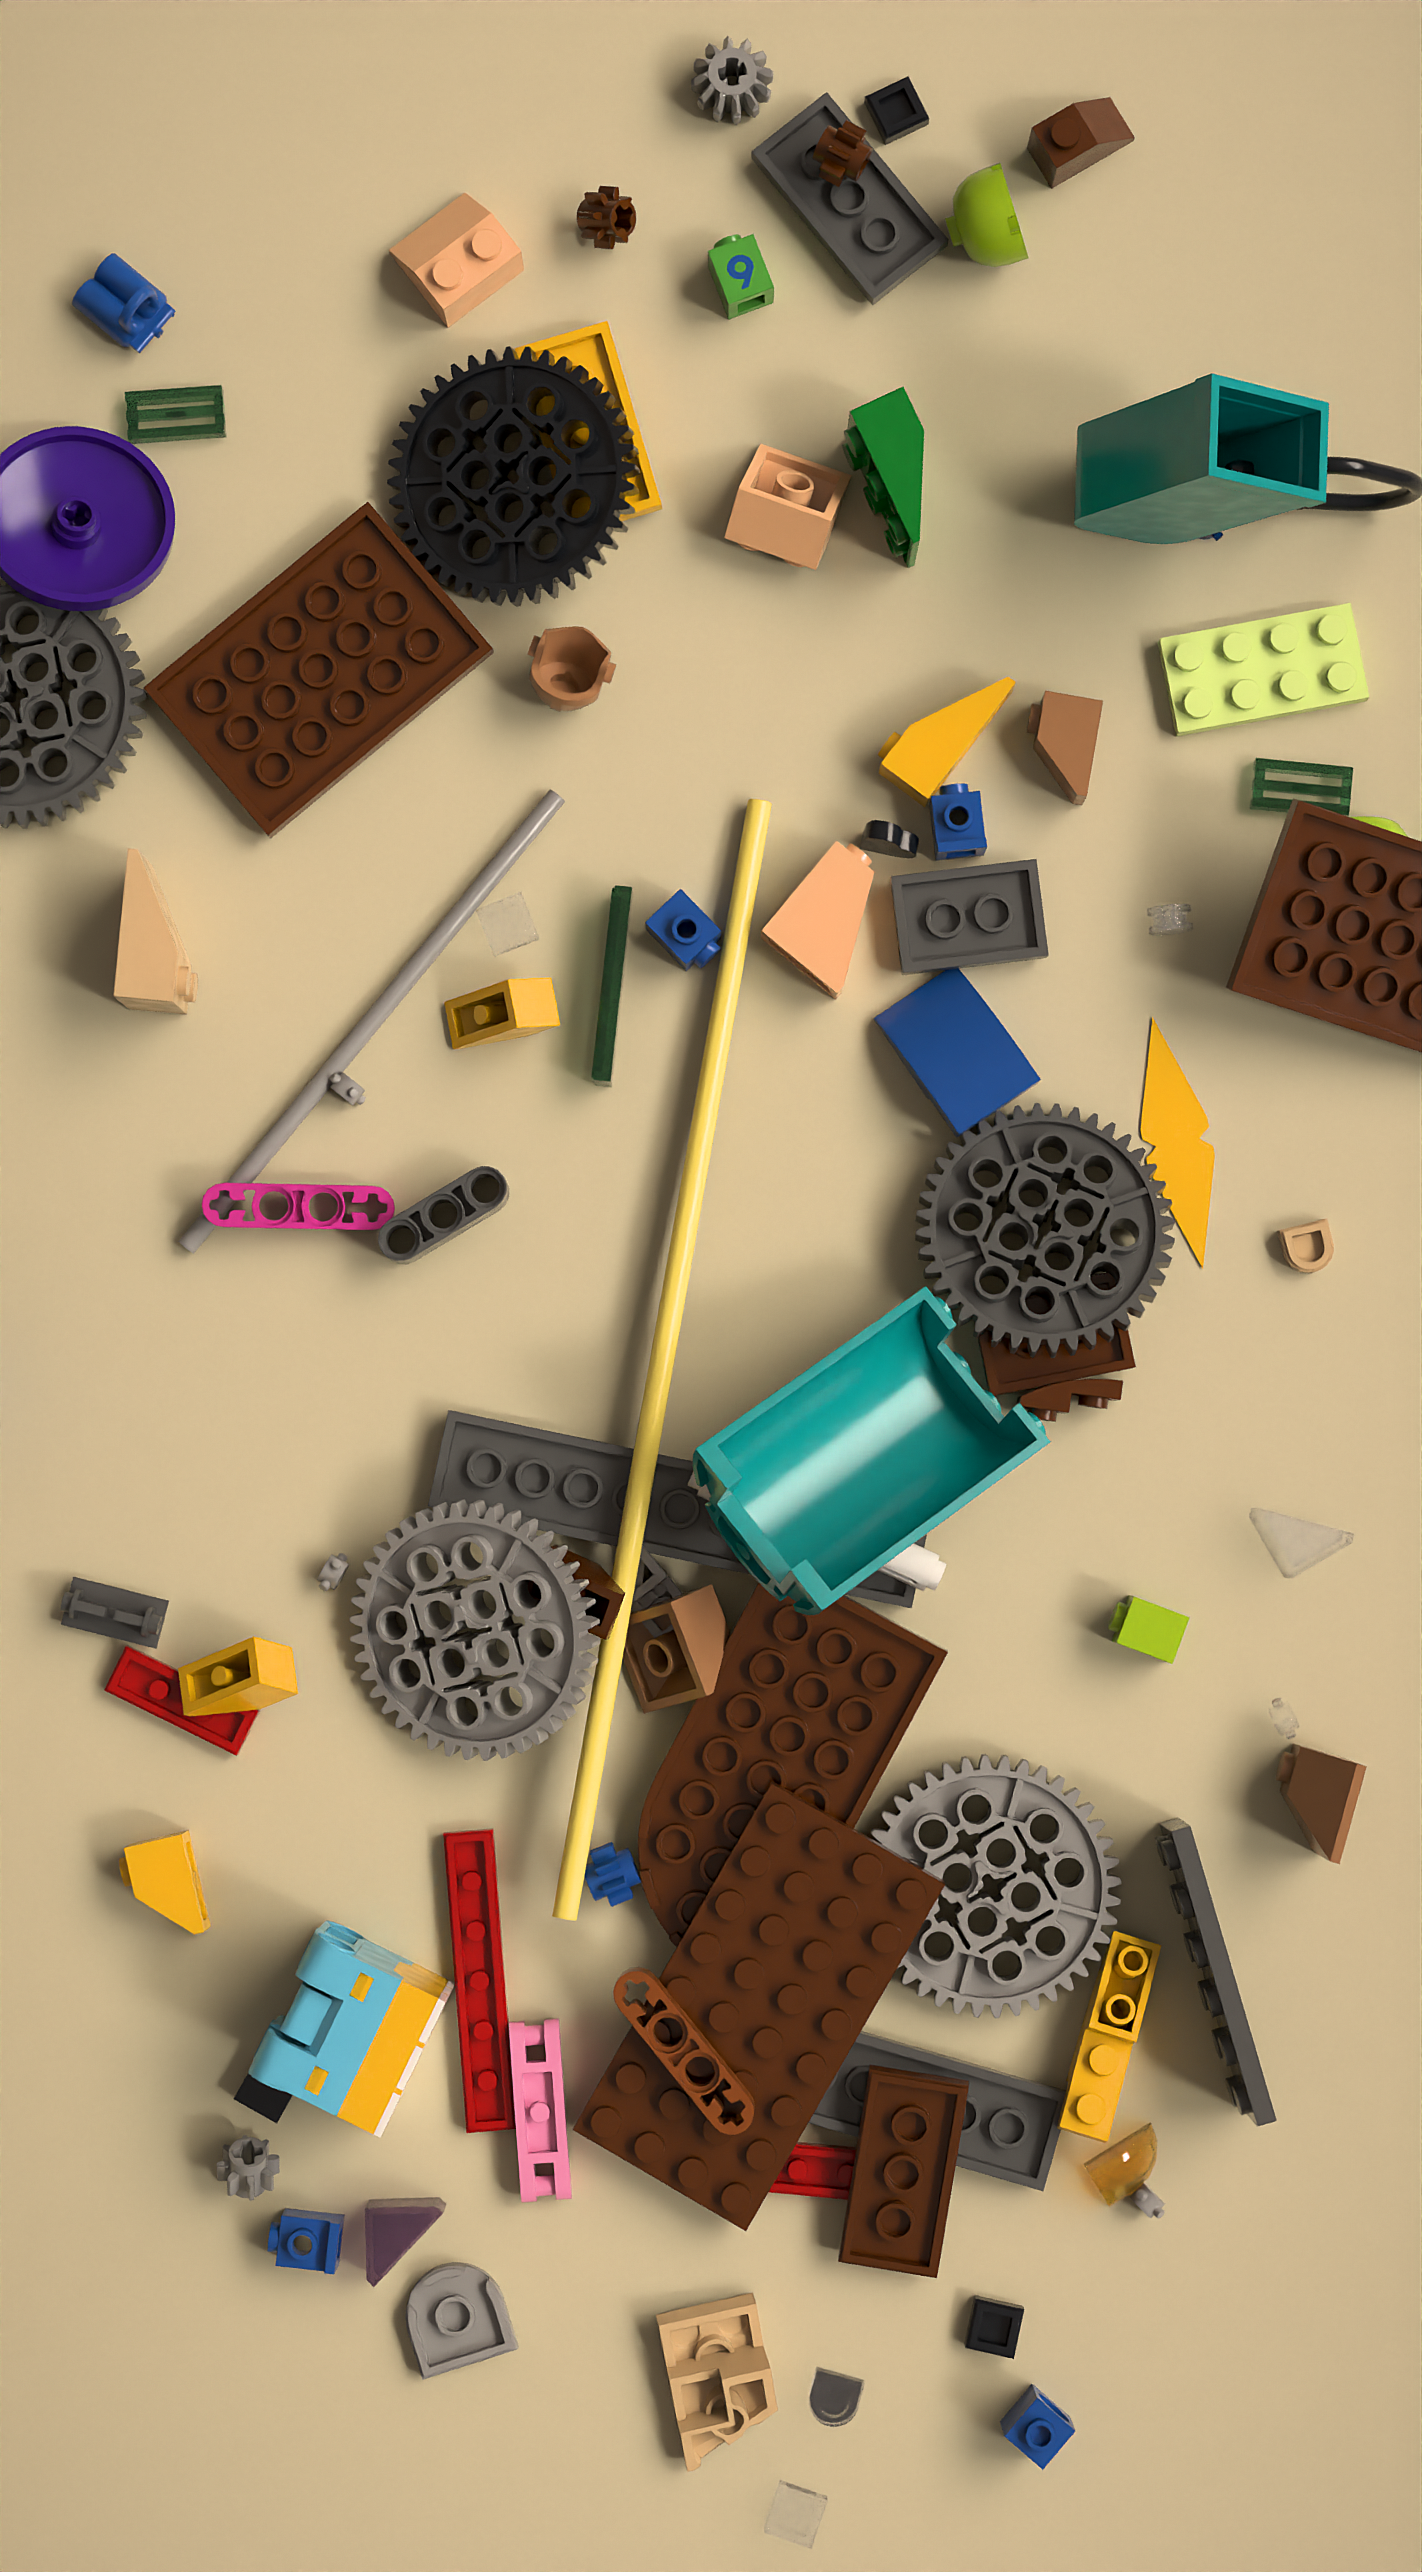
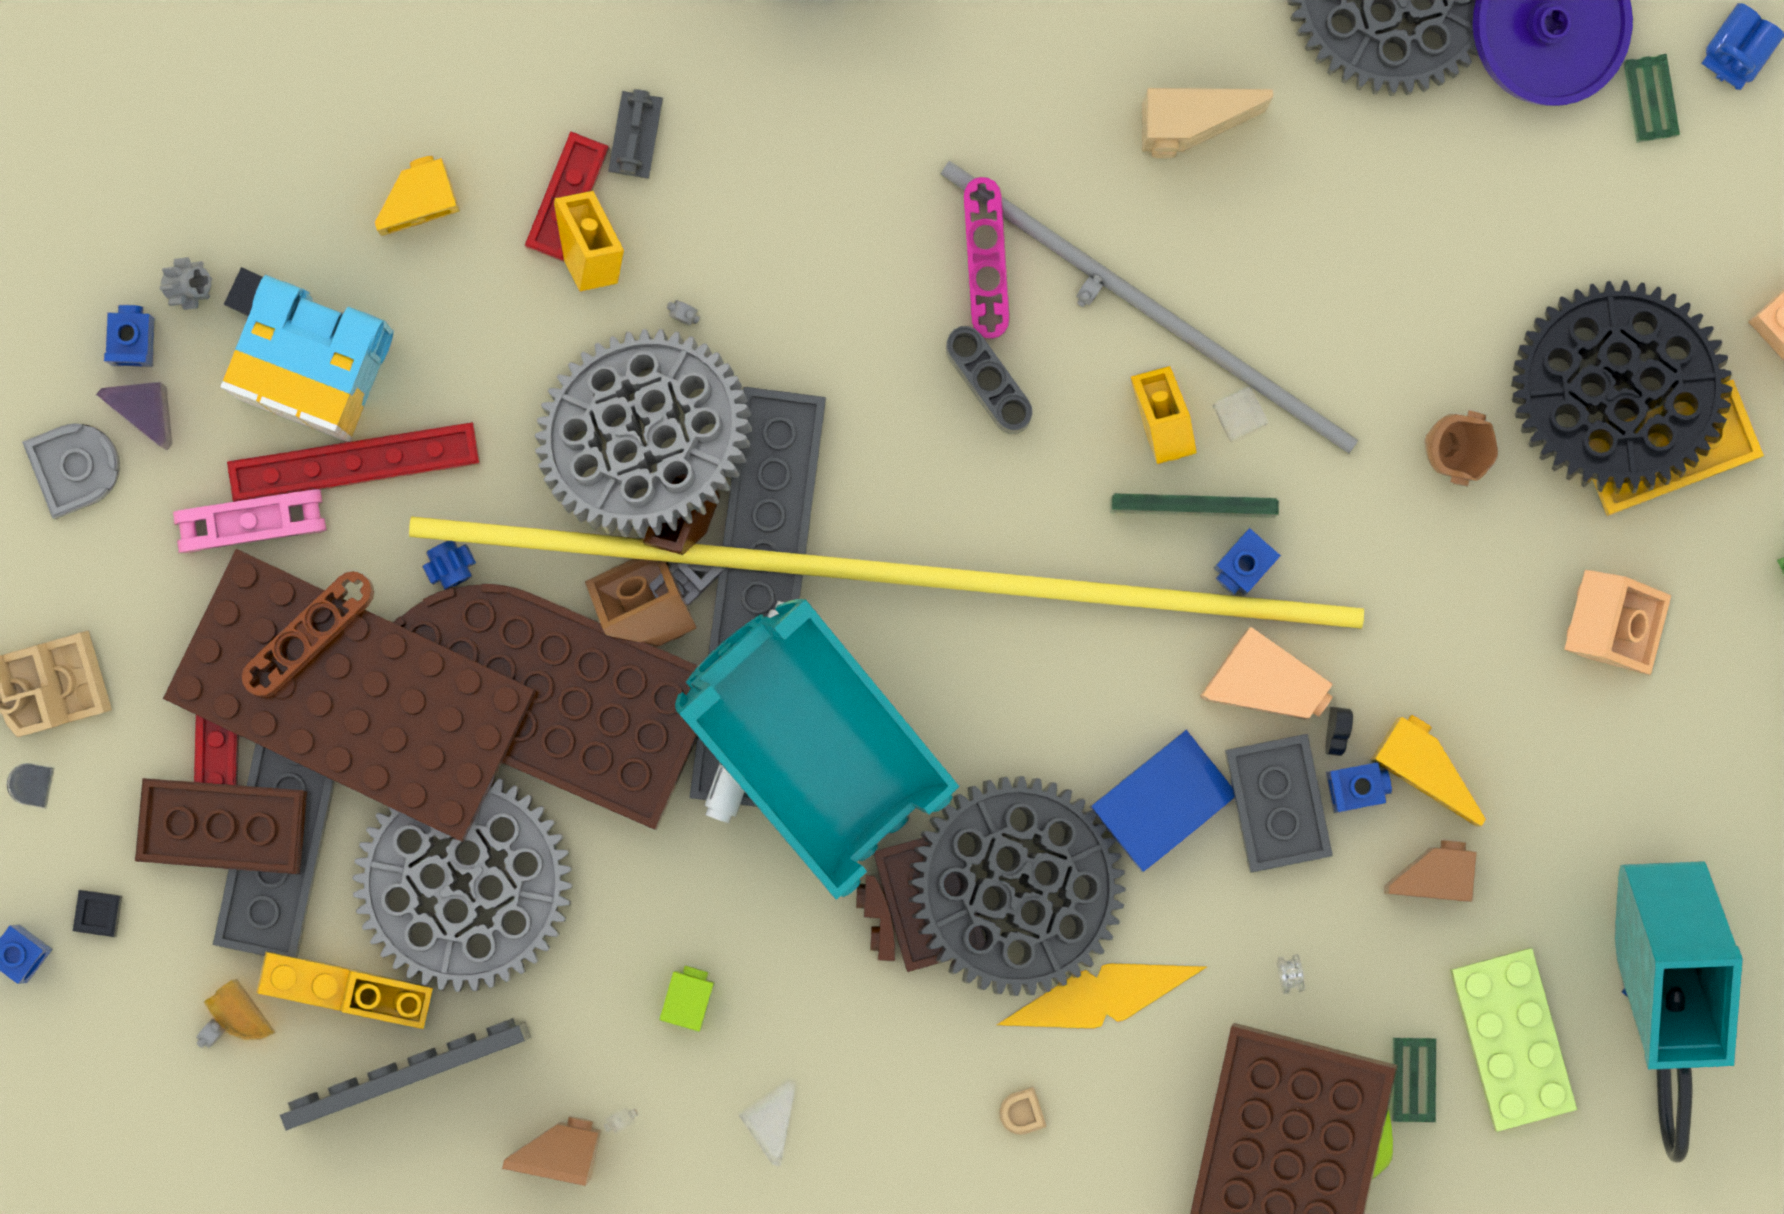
camera: 80 degrees right, 0 degrees up
(319, 669) = (1442, 237): reddish brown plate -> none
(888, 448) = (1672, 704): green slope -> none

